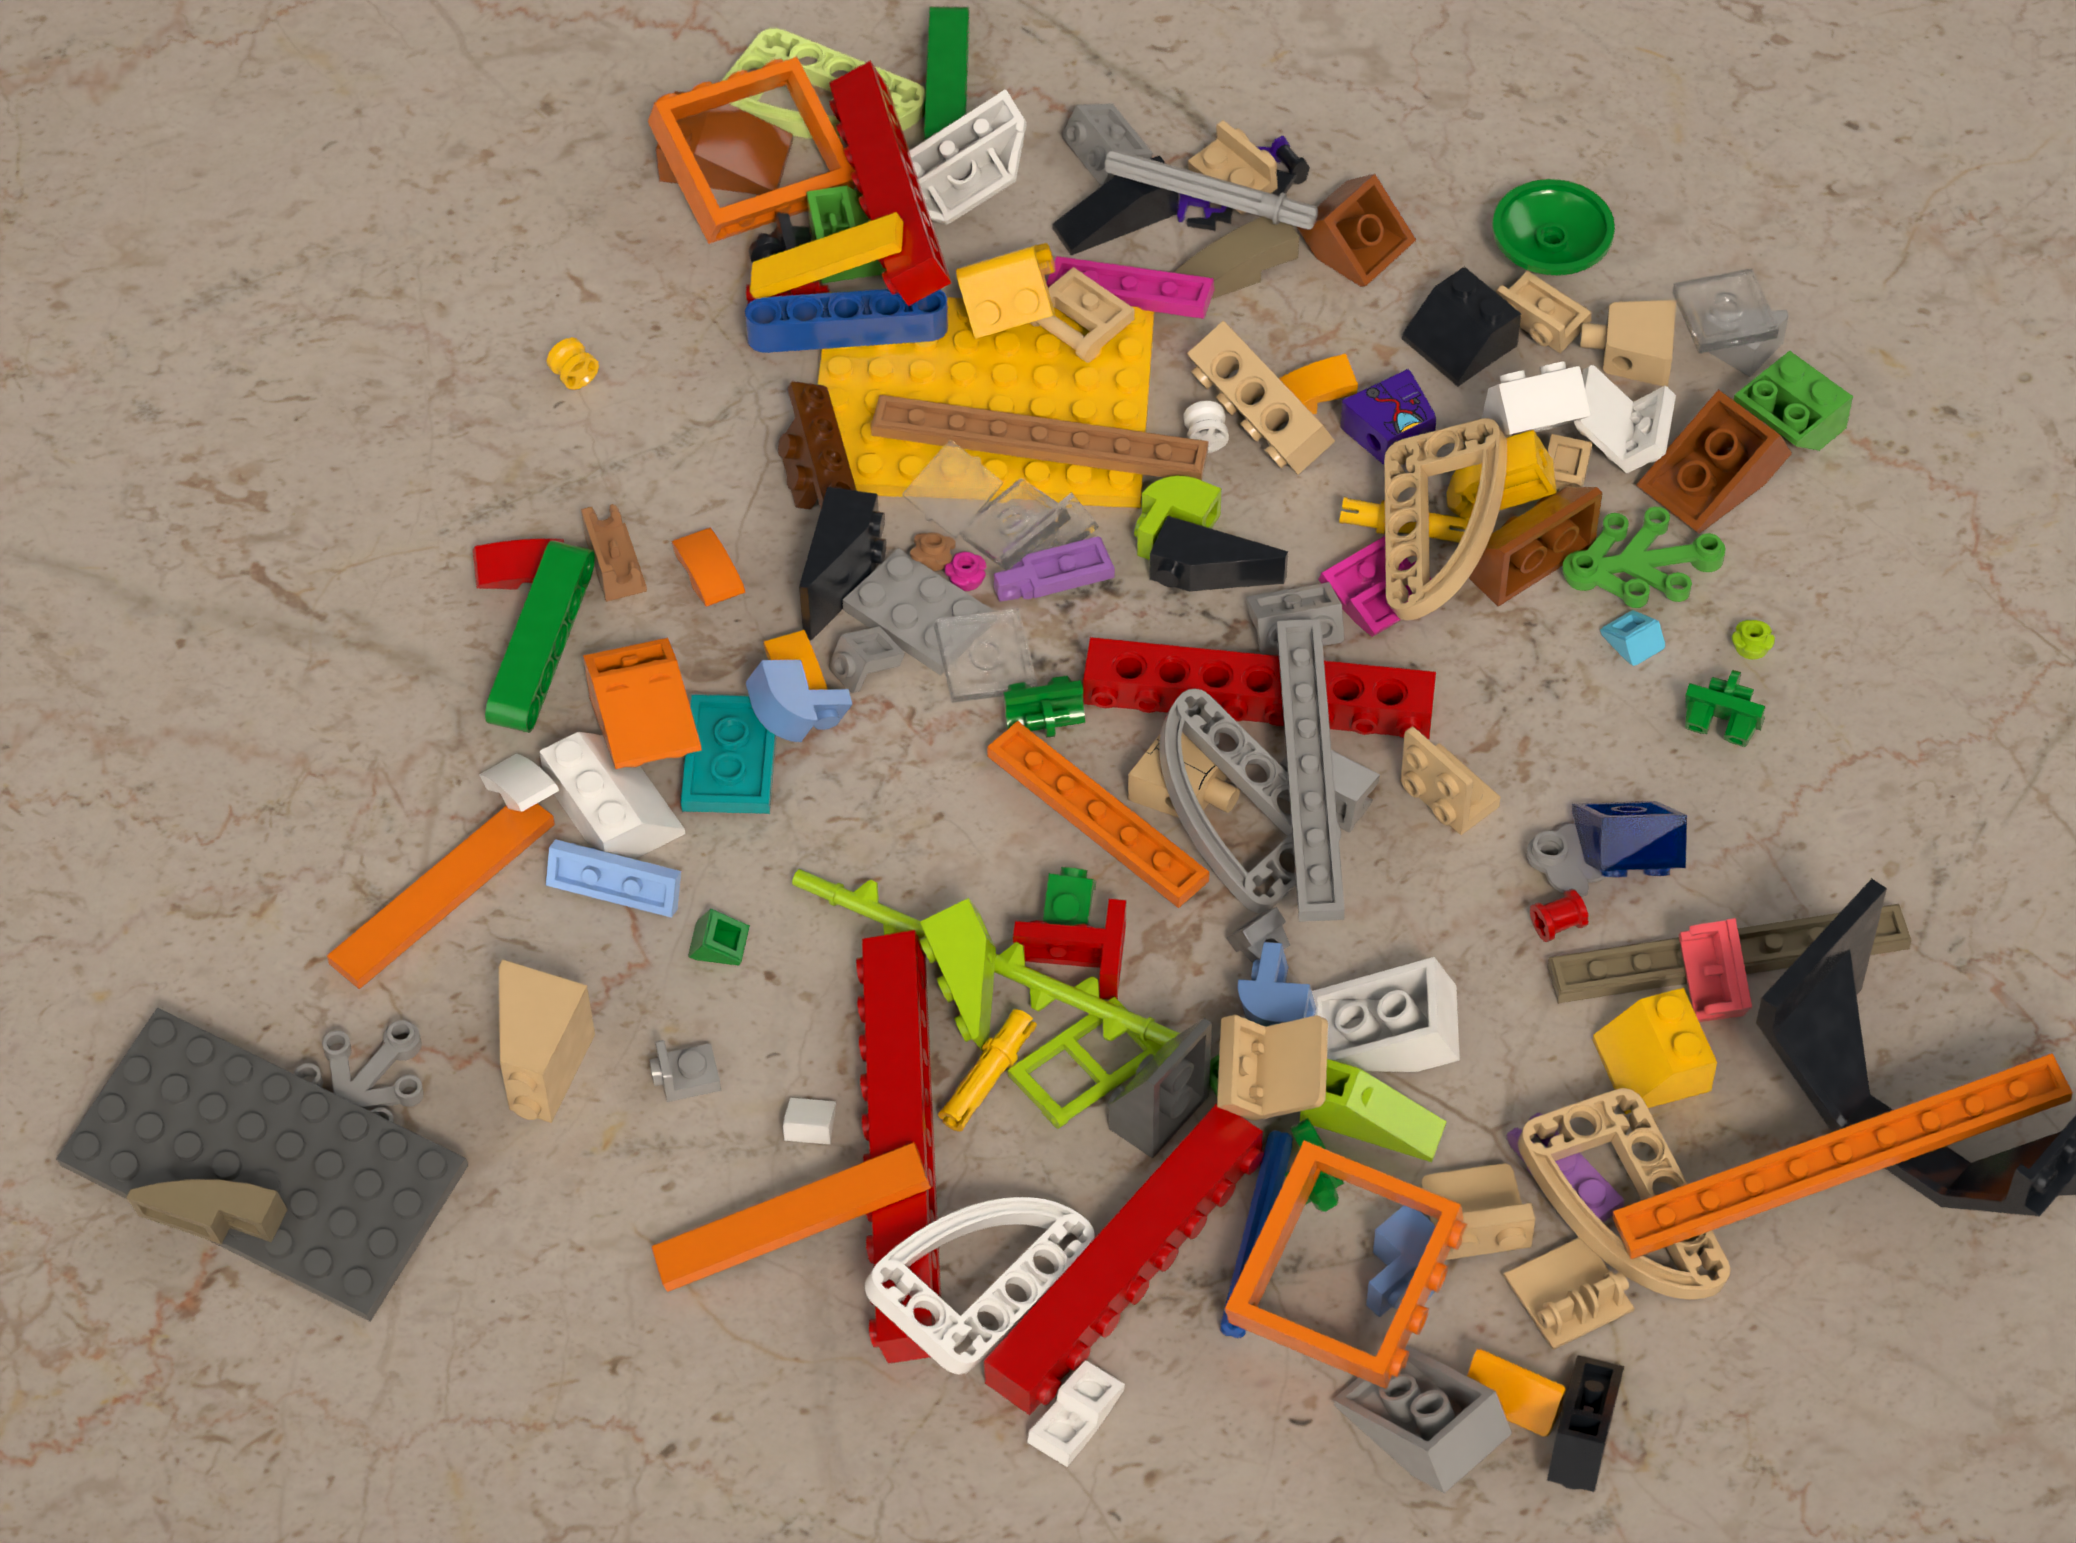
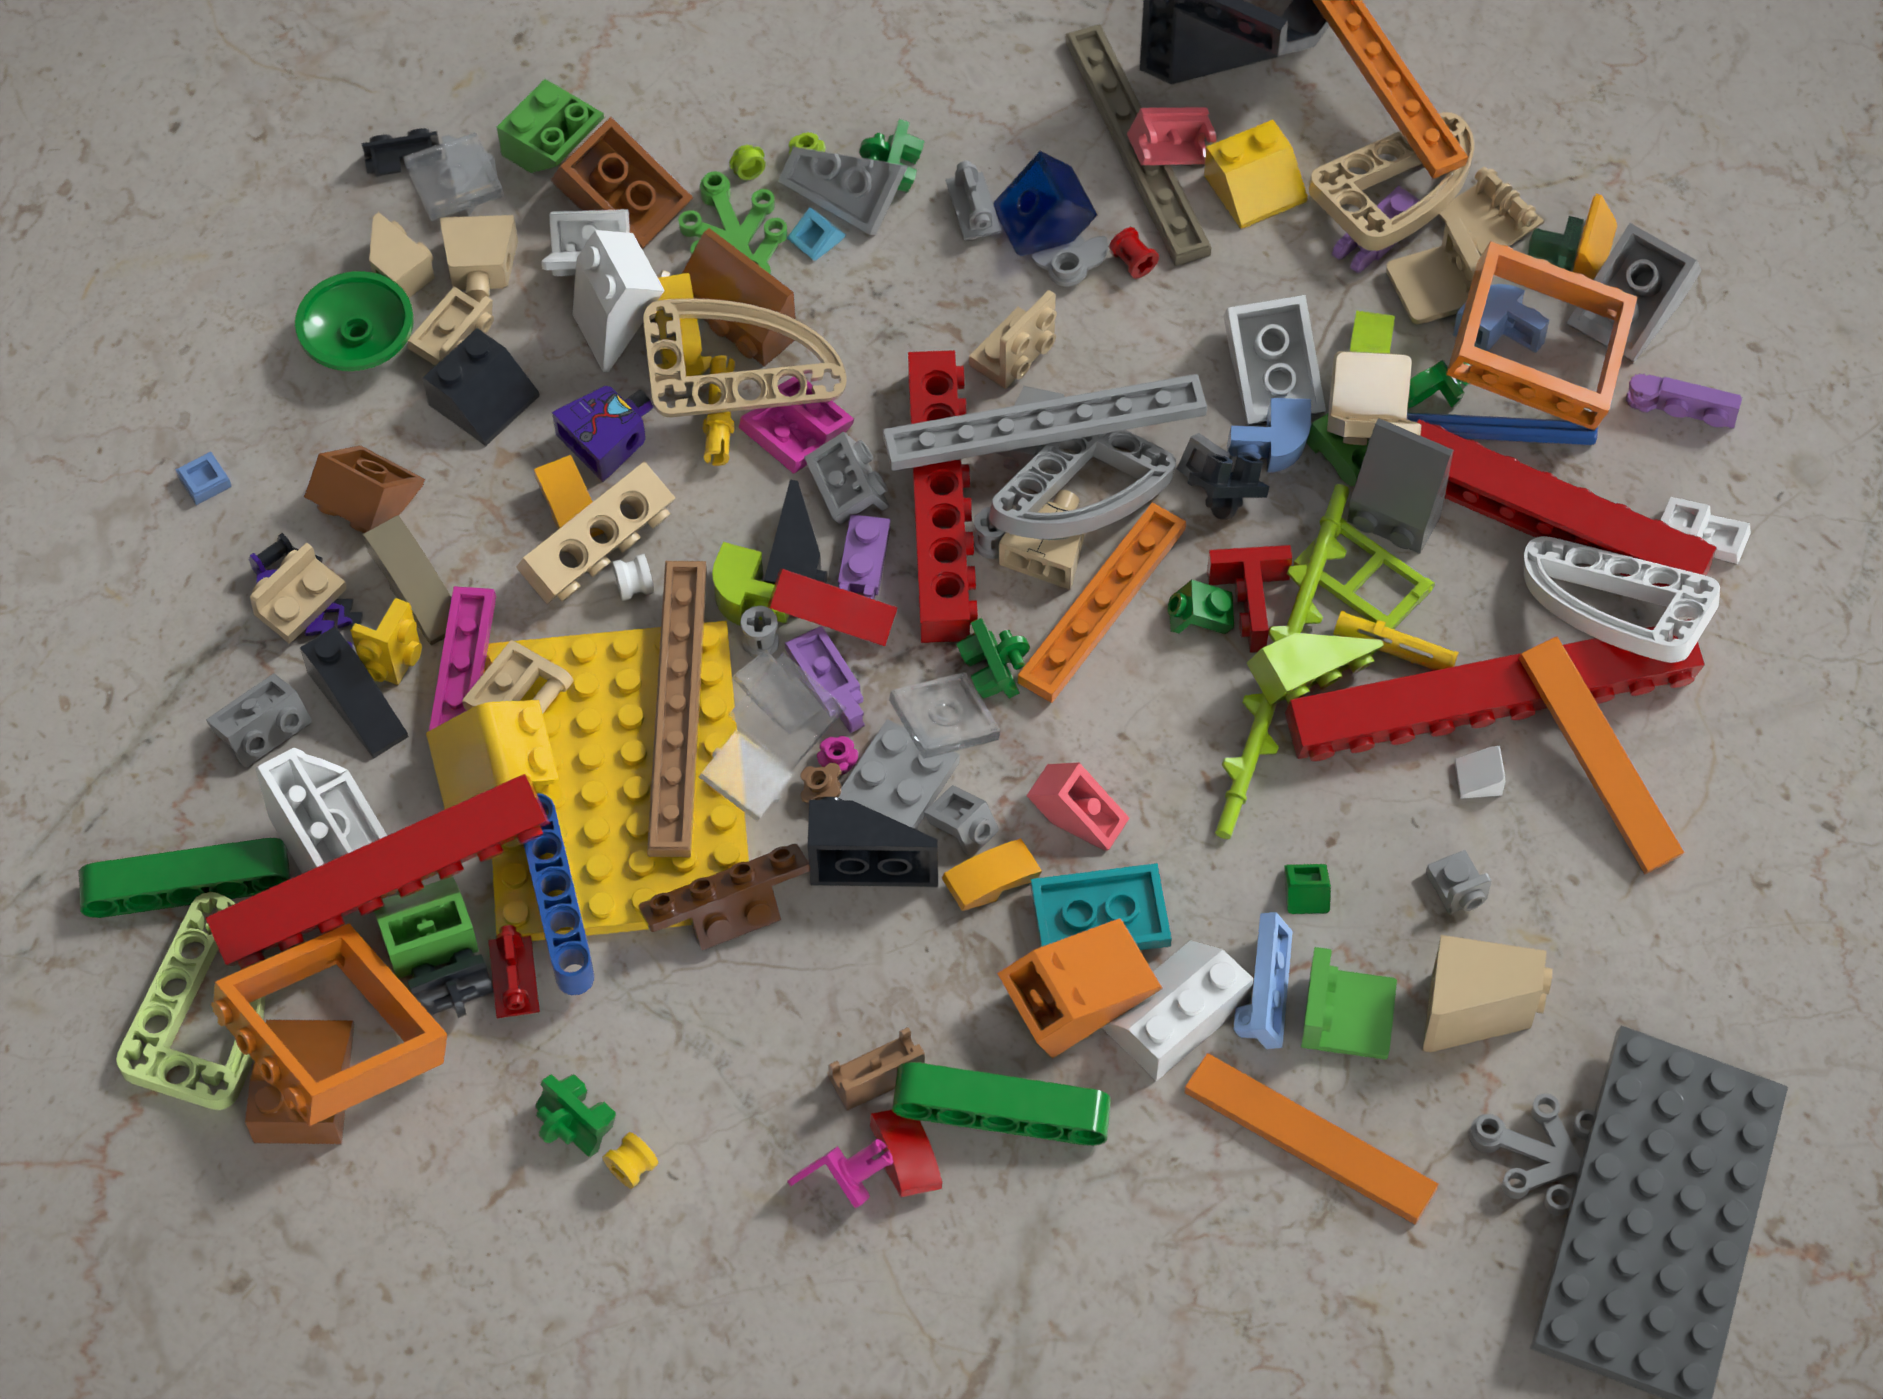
camera: 100 degrees left, 5 degrees up
(211, 1207) = (1743, 1227): dark tan slope -> none
(506, 509) = (851, 1171): none -> dark pink bracket
(519, 782) = (1183, 1083): white slope -> none
(568, 929) = (1348, 1010): none -> bright green bracket
(627, 319) = (570, 1119): none -> green hips
(708, 566) = (874, 977): orange slope -> none
(787, 705) = (1044, 856): medium blue brick -> none
(827, 256) = (502, 901): yellow tile -> none
(853, 750) = (1078, 804): none -> coral slope
(1118, 512) = (755, 632): none -> light grey bush
(1125, 570) = (832, 607): none -> red tile
(1155, 225) = (392, 646): none -> yellow bracket
(1188, 619) = (864, 555): none -> medium lavender hinge
(1211, 189) = (371, 537): light grey axle -> none
(1215, 940) = (1227, 488): none -> black hips
(1255, 1429) = (1683, 400): none -> medium lavender hinge
(1396, 121) = (203, 478): none -> medium blue tile
(1514, 1342) = (1556, 247): none -> clear green panel
(1585, 1424) = (1627, 184): black slope -> none
(1640, 271) = (399, 256): none -> tan slope
(1654, 780) = (972, 202): none -> light grey hinge
(1686, 655) = (844, 184): none -> light grey wing
(1738, 581) = (747, 162): none -> lime plate
(1785, 278) = (388, 150): none -> black hinge

